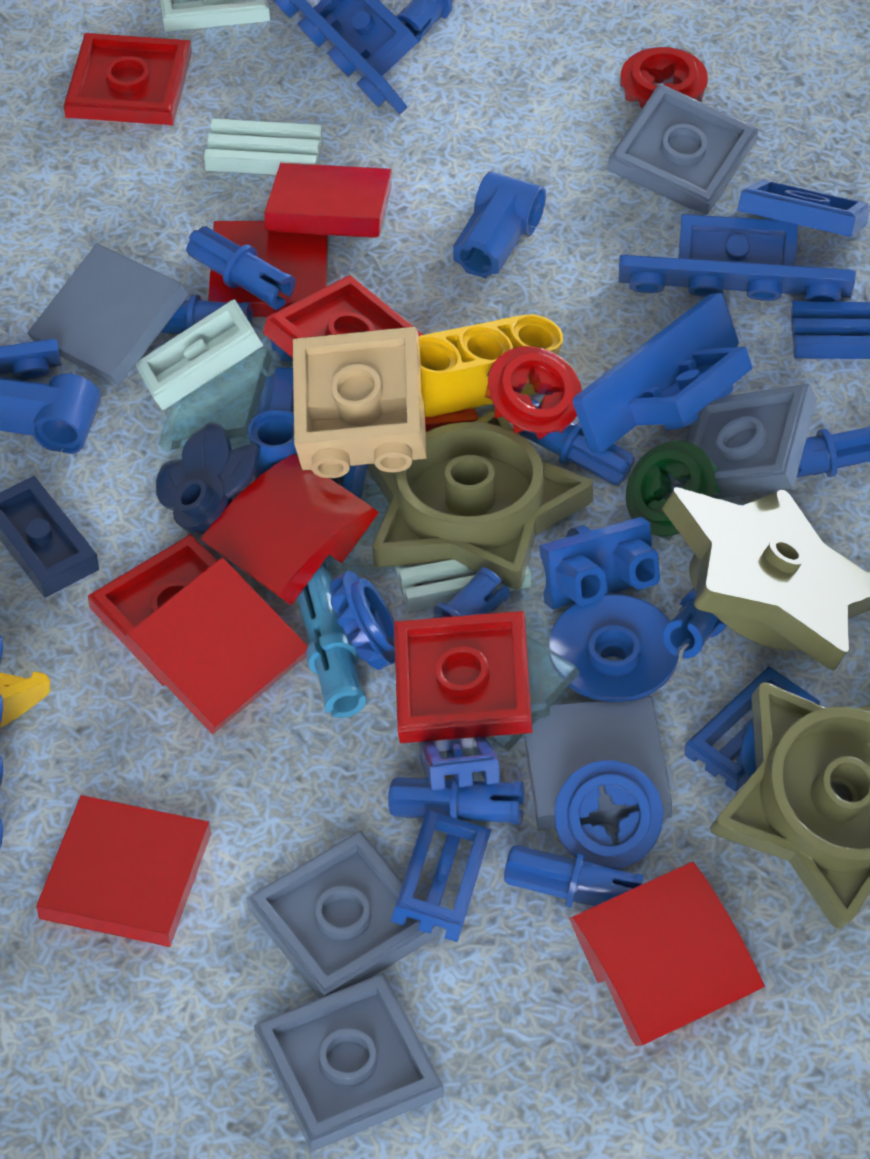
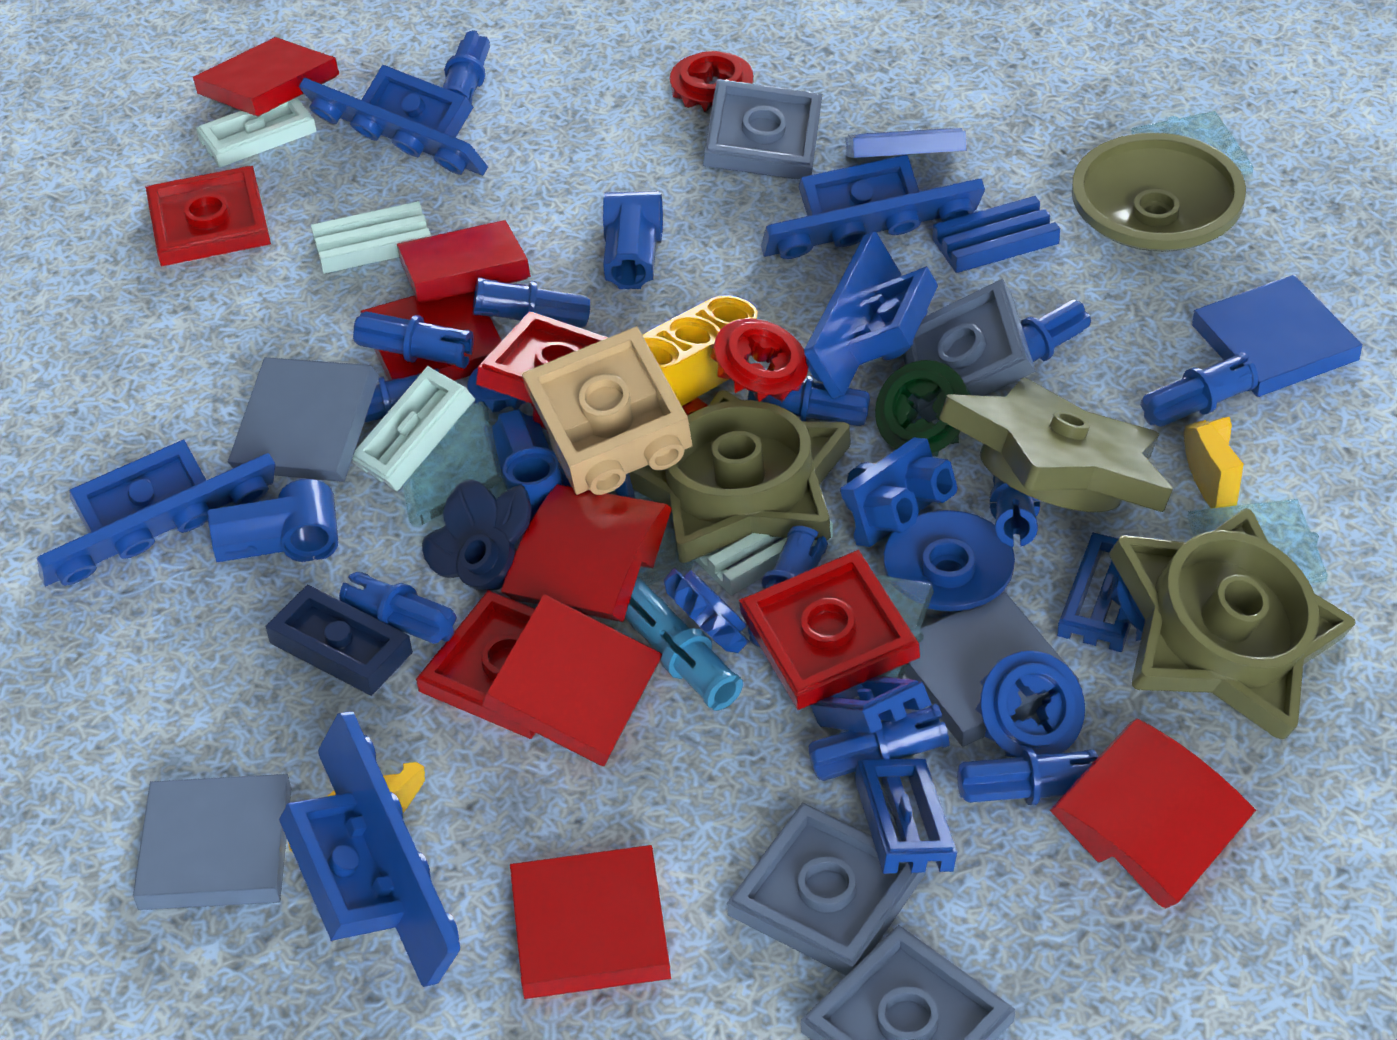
camera: 20 degrees left, 5 degrees down
(101, 524) = (400, 608): none -> blue axle
(367, 263) = (516, 300): none -> blue axle

